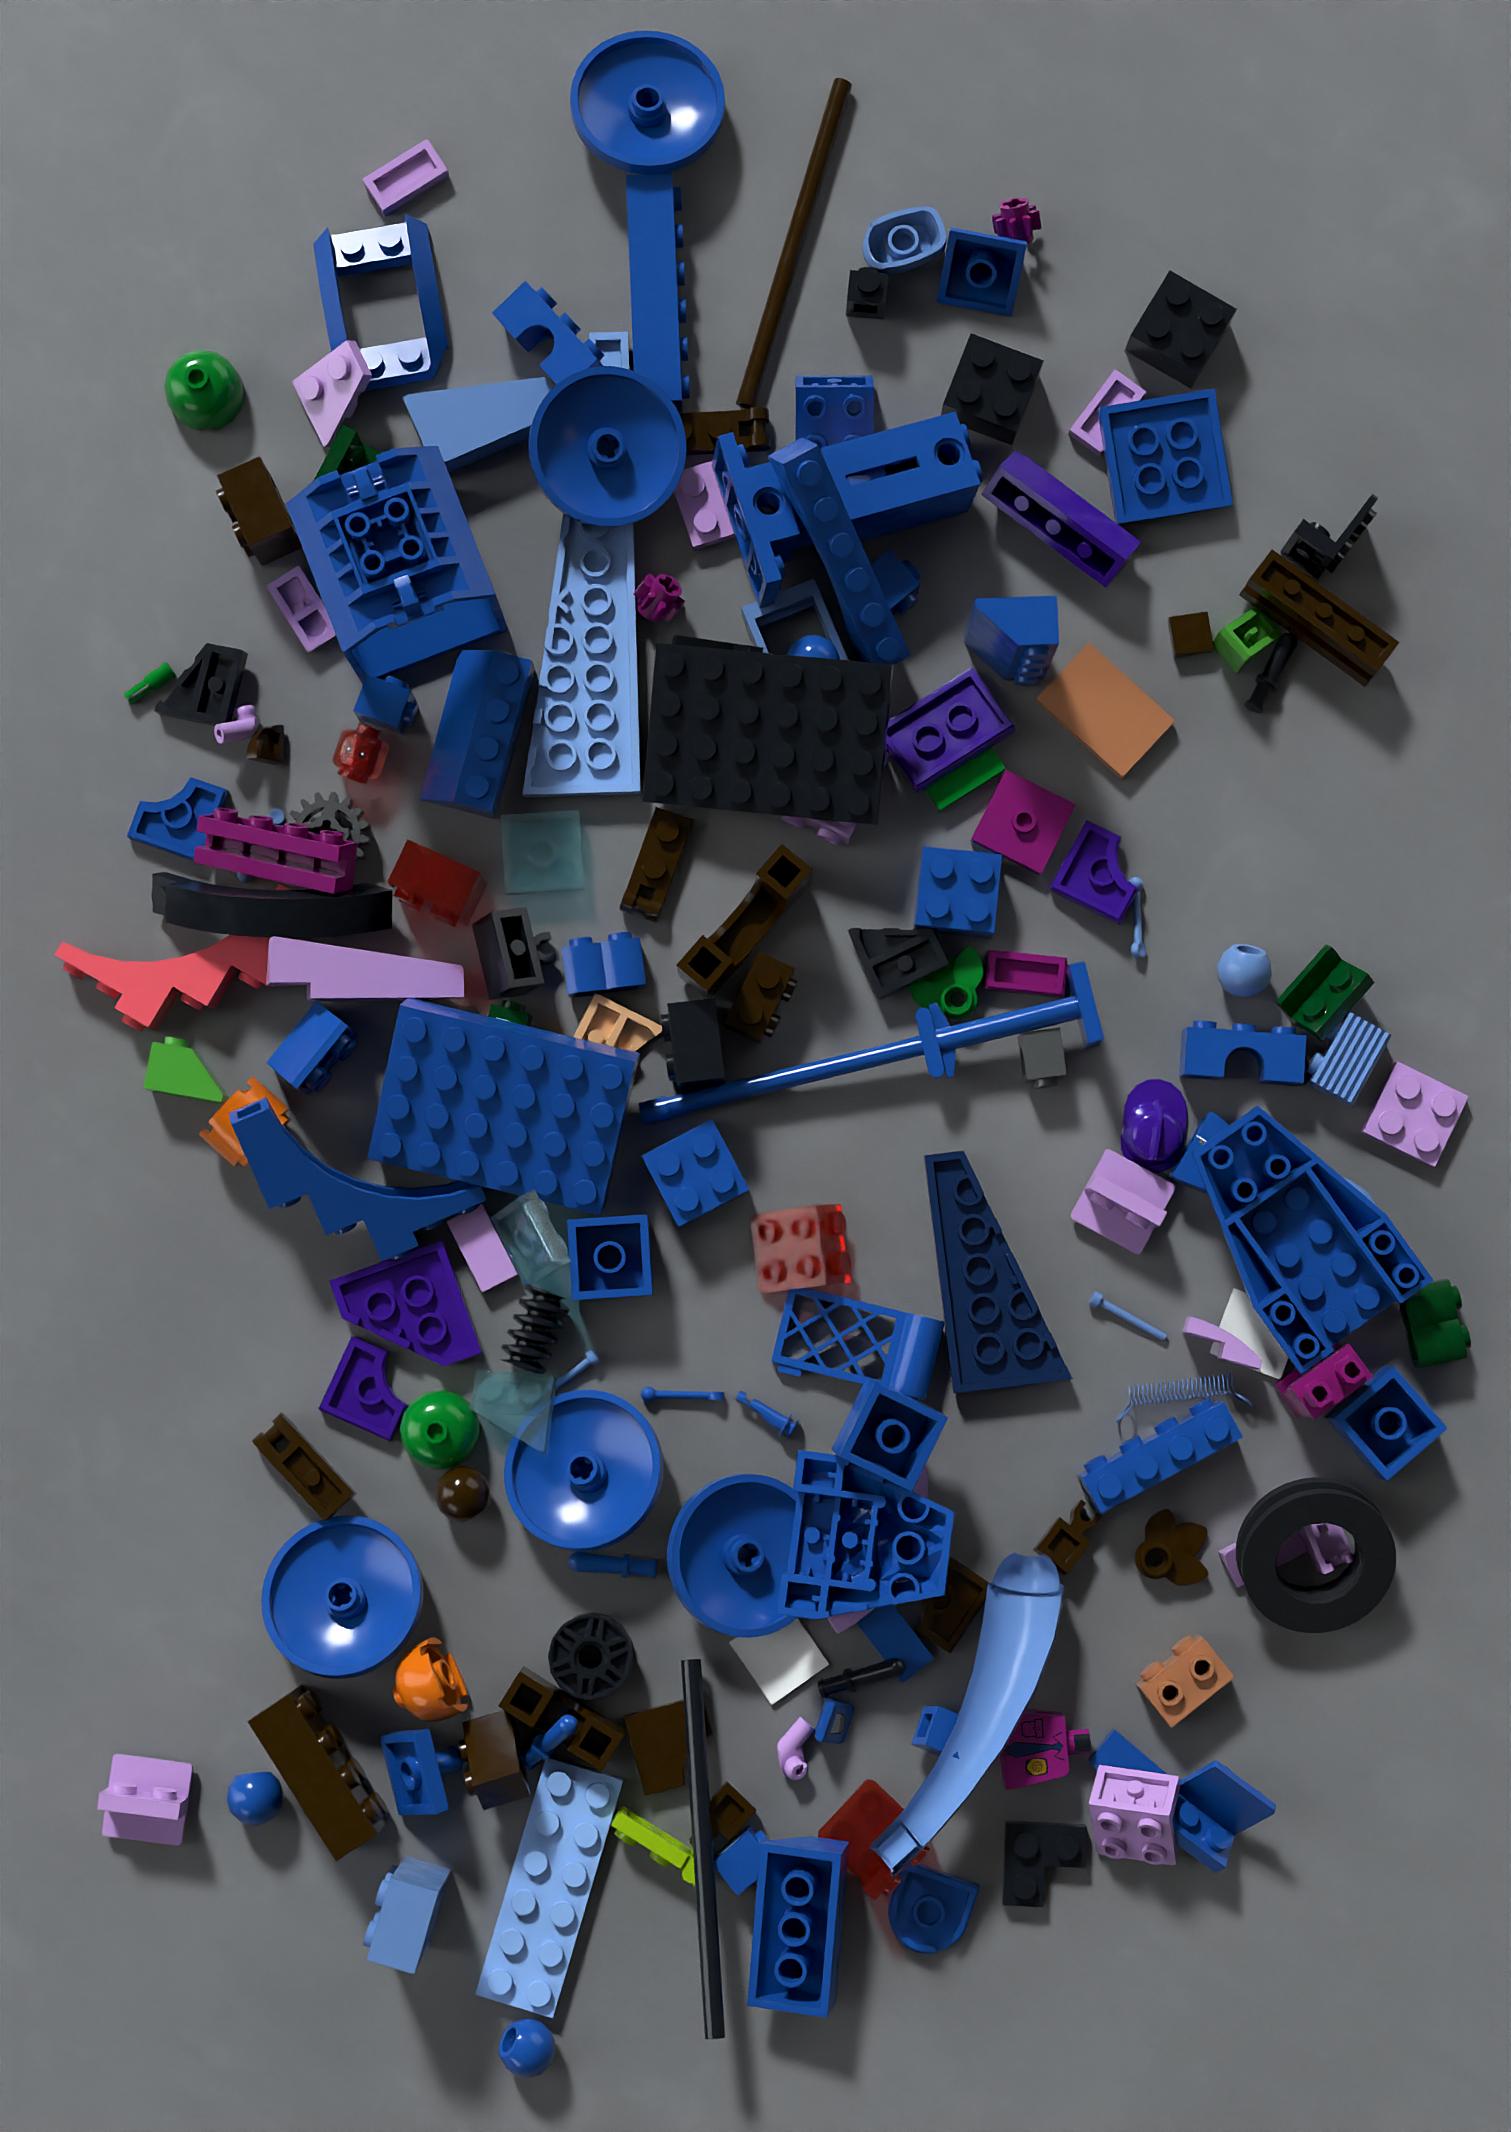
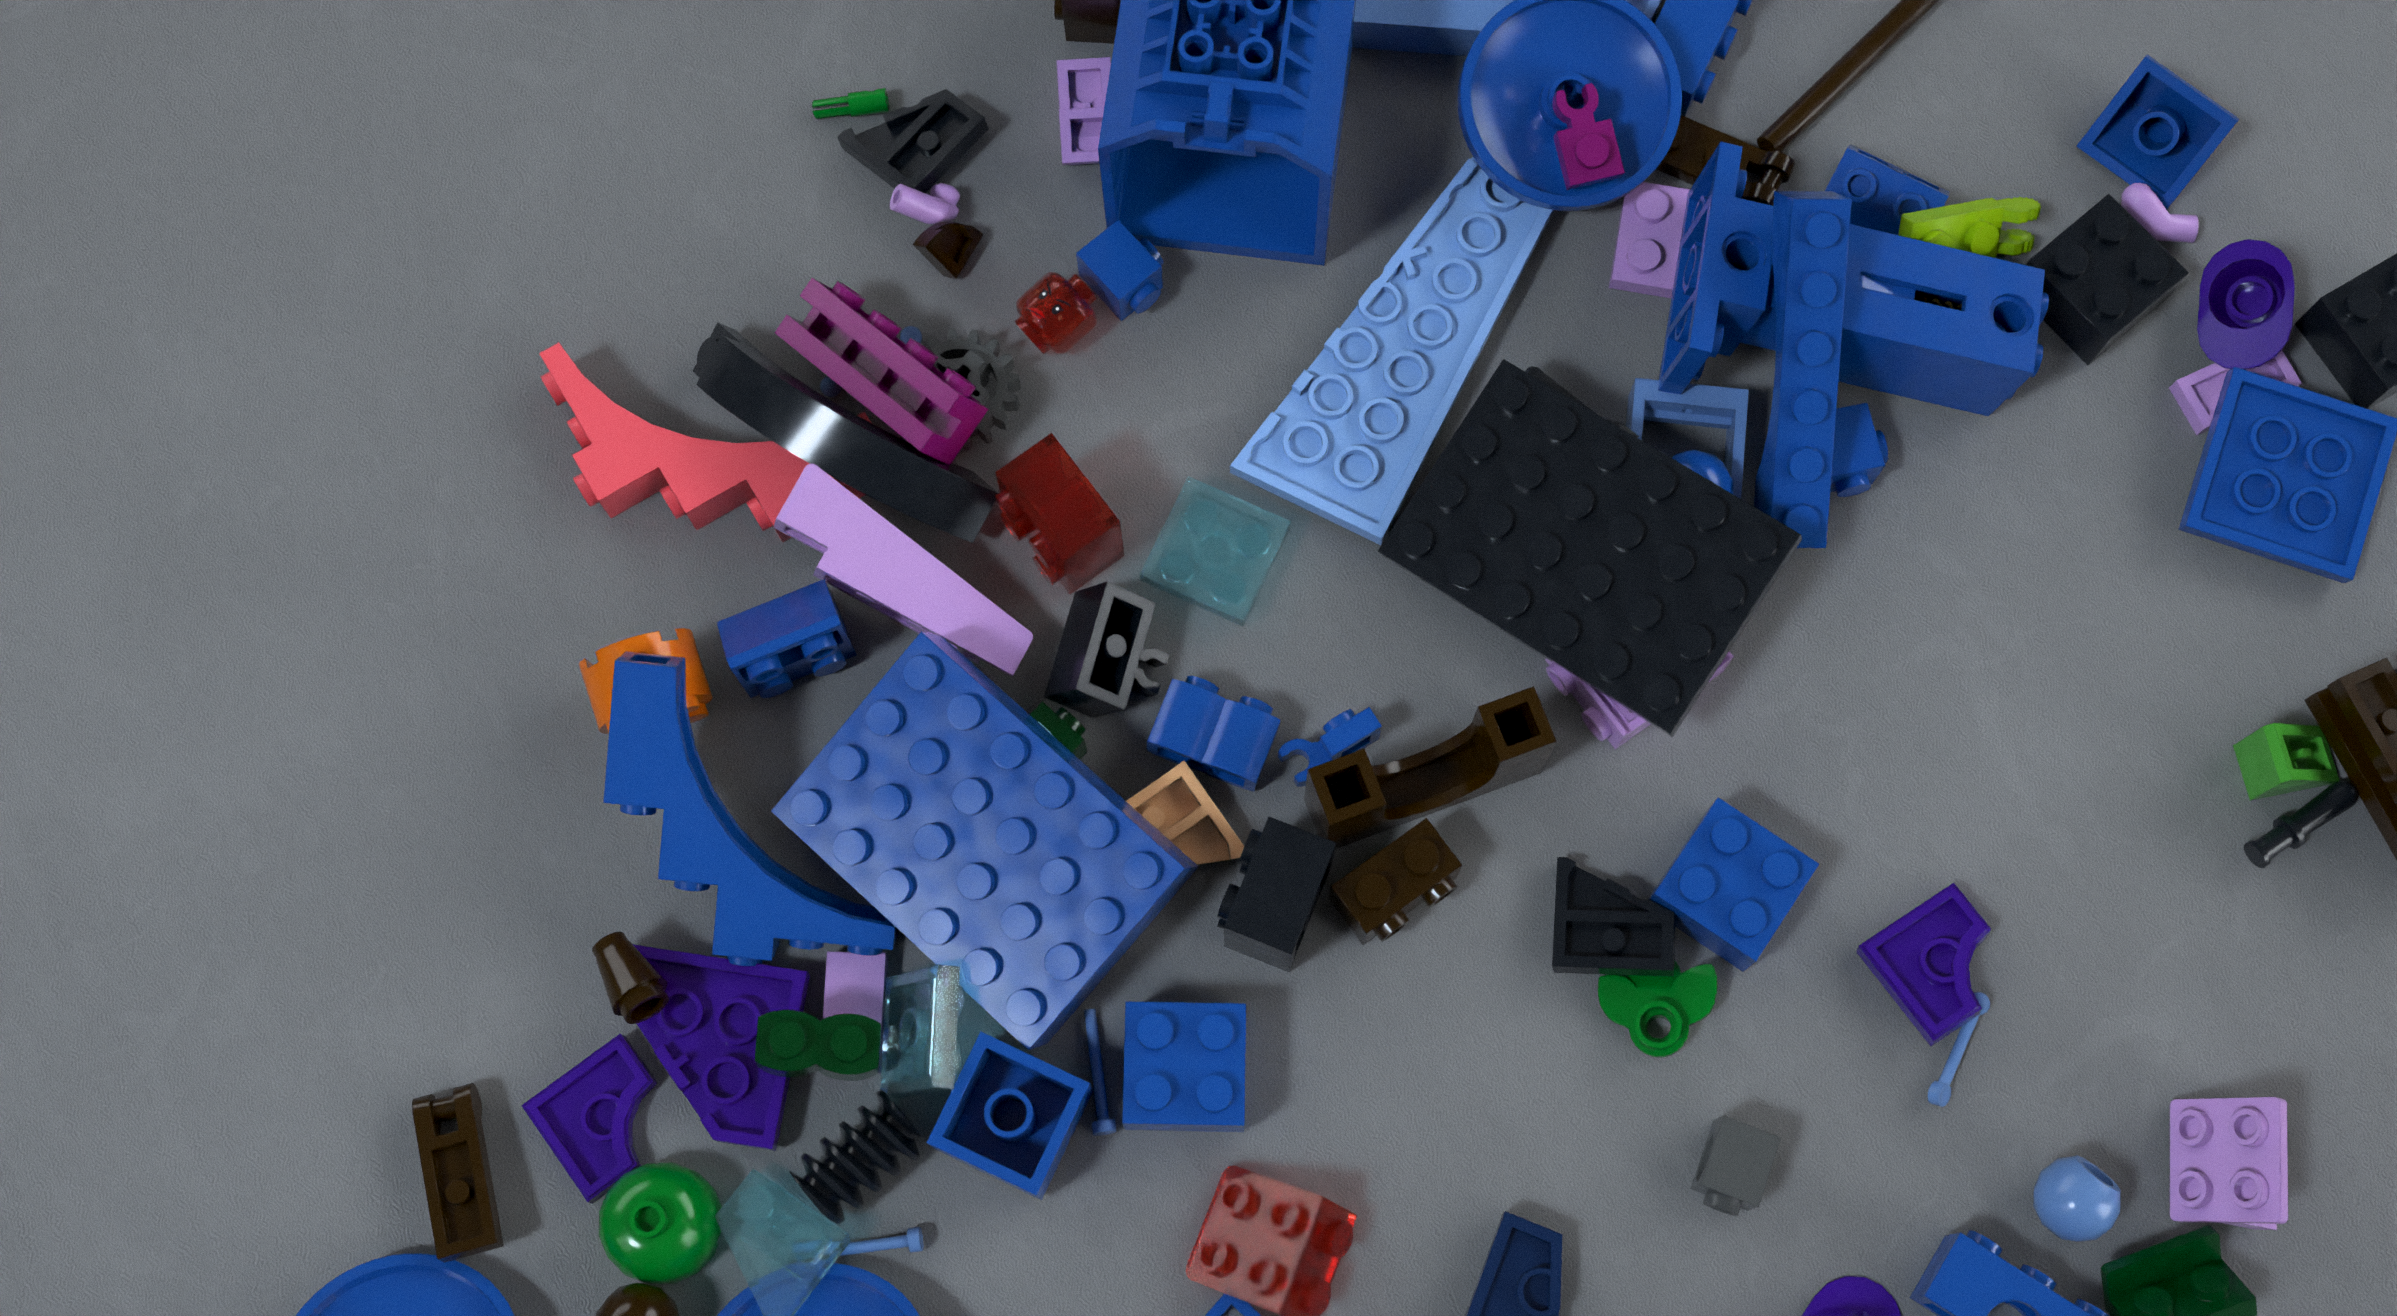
camera: 30 degrees right, 10 degrees down
(173, 822) = (775, 275): blue tile -> none
(182, 1072) = (606, 579): bright green slope -> none
(341, 1302) = (629, 979): none -> dark brown cone
(478, 731) = (1219, 364): blue slope -> none
(486, 1275) = (800, 1044): none -> dark green brick
(636, 475) = (1587, 148): none -> magenta plate
(656, 863) = (1353, 642): dark brown plate -> none
(659, 597) = (1535, 316): magenta gear -> none
(666, 1232) = (1103, 1125): none -> medium blue piece
(682, 925) = (1342, 736): none -> blue plate
(867, 287) = (2002, 79): black brick -> none
(897, 399) = (1975, 225): none -> lime hinge
(904, 240) = (2074, 49): medium blue piece -> none
(936, 1041) = (1600, 1066): blue piece -> none
(946, 730) = (1823, 670): dark purple tile -> none
(965, 779) = (1814, 737): green tile -> none
(1004, 328) = (2154, 218): none -> lavender arm
(1015, 635) = (1984, 584): blue slope -> none
(1017, 220) = (2237, 92): magenta gear -> none
(1023, 822) = (1865, 842): magenta plate -> none
(1025, 973) = (1768, 1043): magenta tile -> none
(1061, 518) = (2112, 481): dark purple brick -> none
(1088, 361) = (2246, 304): none -> dark purple piece
(1104, 710) = (2048, 756): nougat tile -> none
(1190, 634) = (2213, 717): dark brown tile -> none
(1319, 902) = (2229, 1161): none -> lavender bracket

